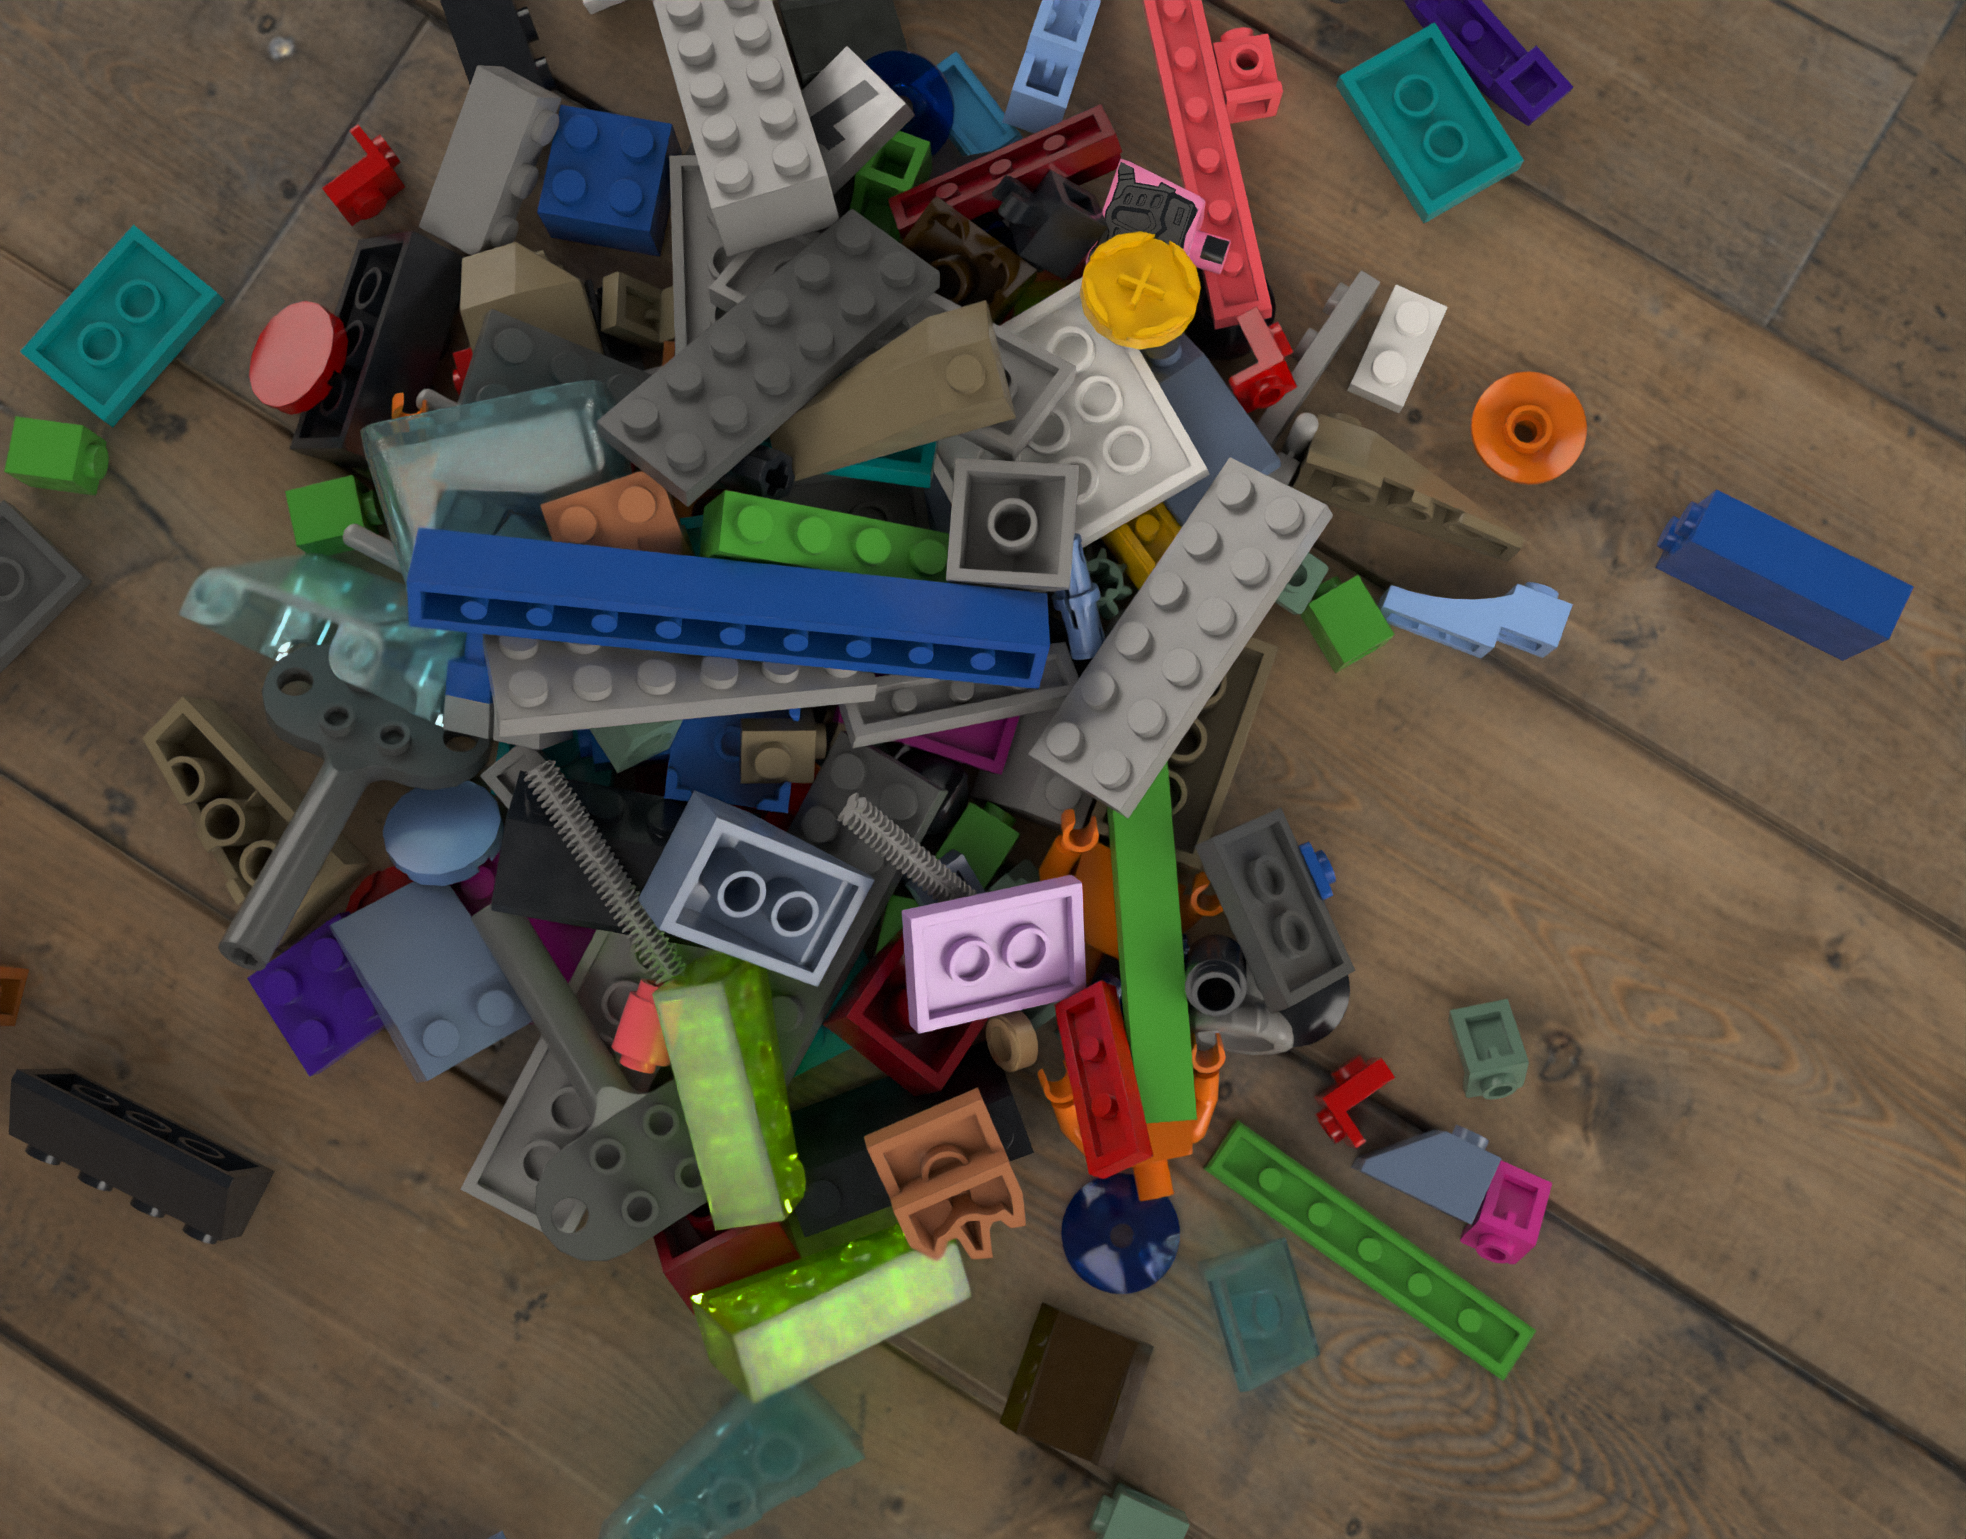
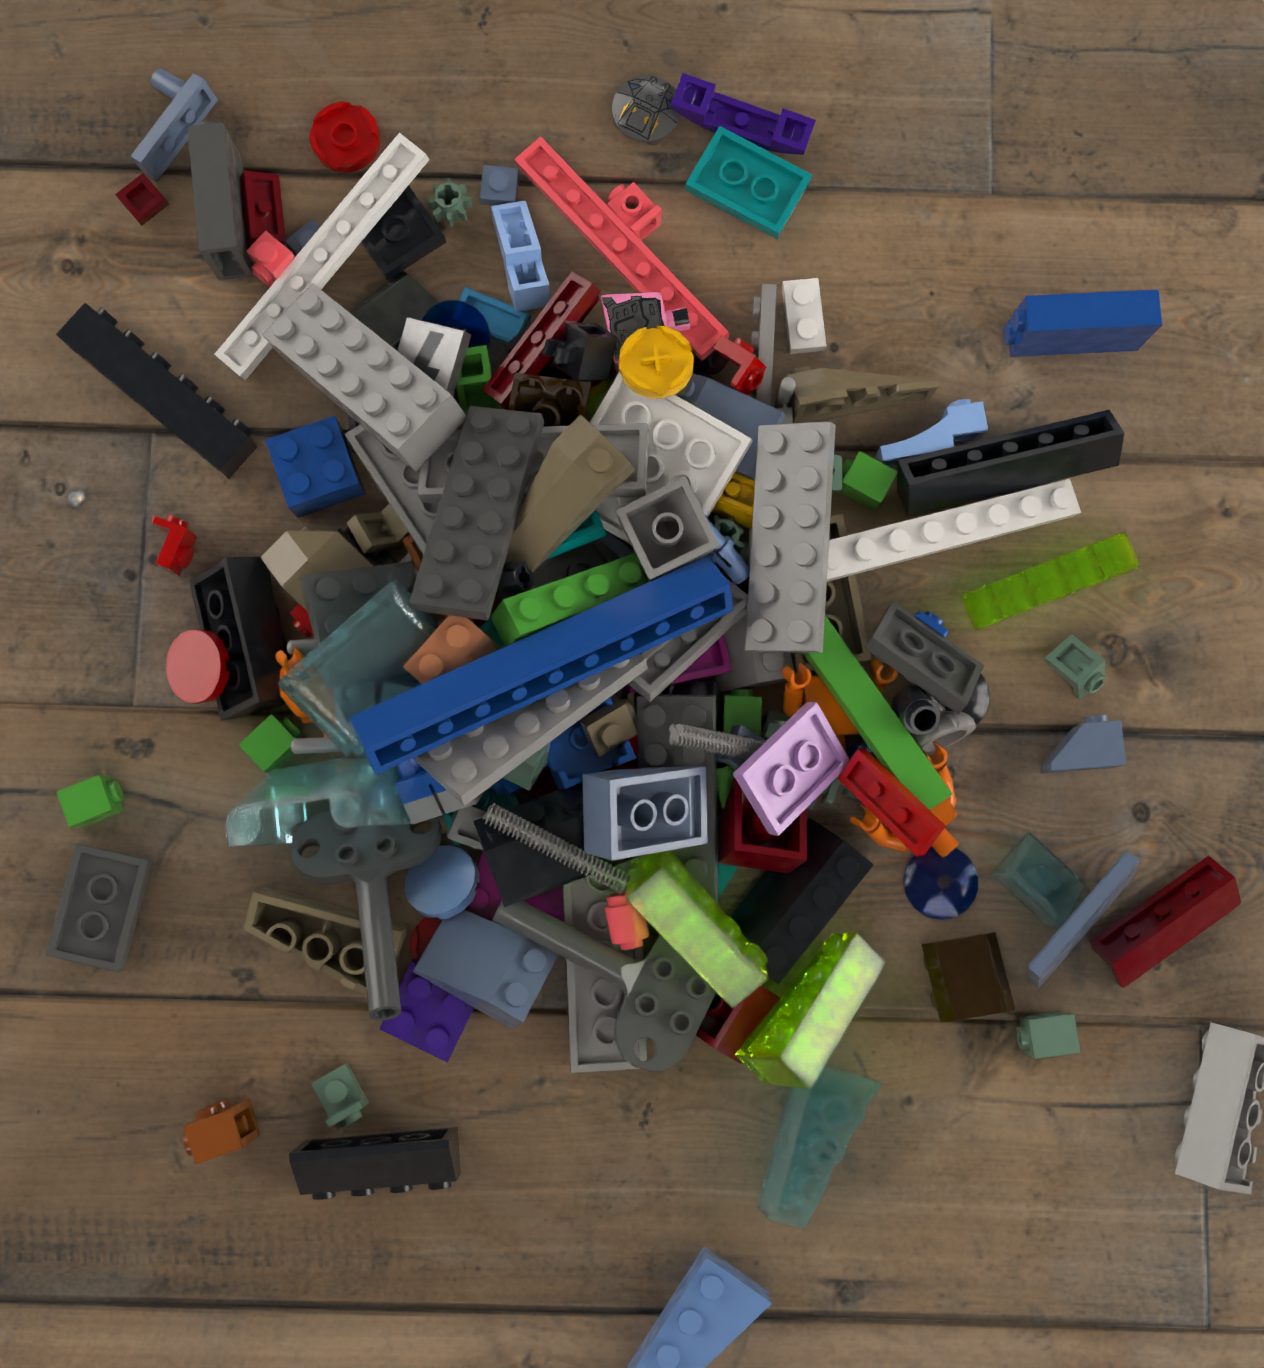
camera: 35 degrees left, 0 degrees up
(122, 326) = (83, 706): teal plate -> none
(145, 1037) = (340, 1096): none -> sand green bracket
(491, 160) = (244, 494): light grey brick -> none
(948, 1176) = (838, 903): nougat plate -> none
(1012, 1041) = (825, 812): tan tile -> none
(1279, 1401) = (1082, 919): none -> sand blue tile
(1353, 1083) = (1018, 727): red bracket -> none
(1369, 1250) = (1077, 811): bright green tile -> none
(1403, 1475) = (1167, 920): none -> dark red panel
(1418, 754) = (950, 529): none -> white plate
(1508, 1215) = (1142, 749): dark pink bracket -> none
(1522, 909) = (1050, 581): none -> clear neon green beam
(1543, 407) = (903, 304): orange dish -> none
(1562, 711) = (1009, 462): none -> black brick

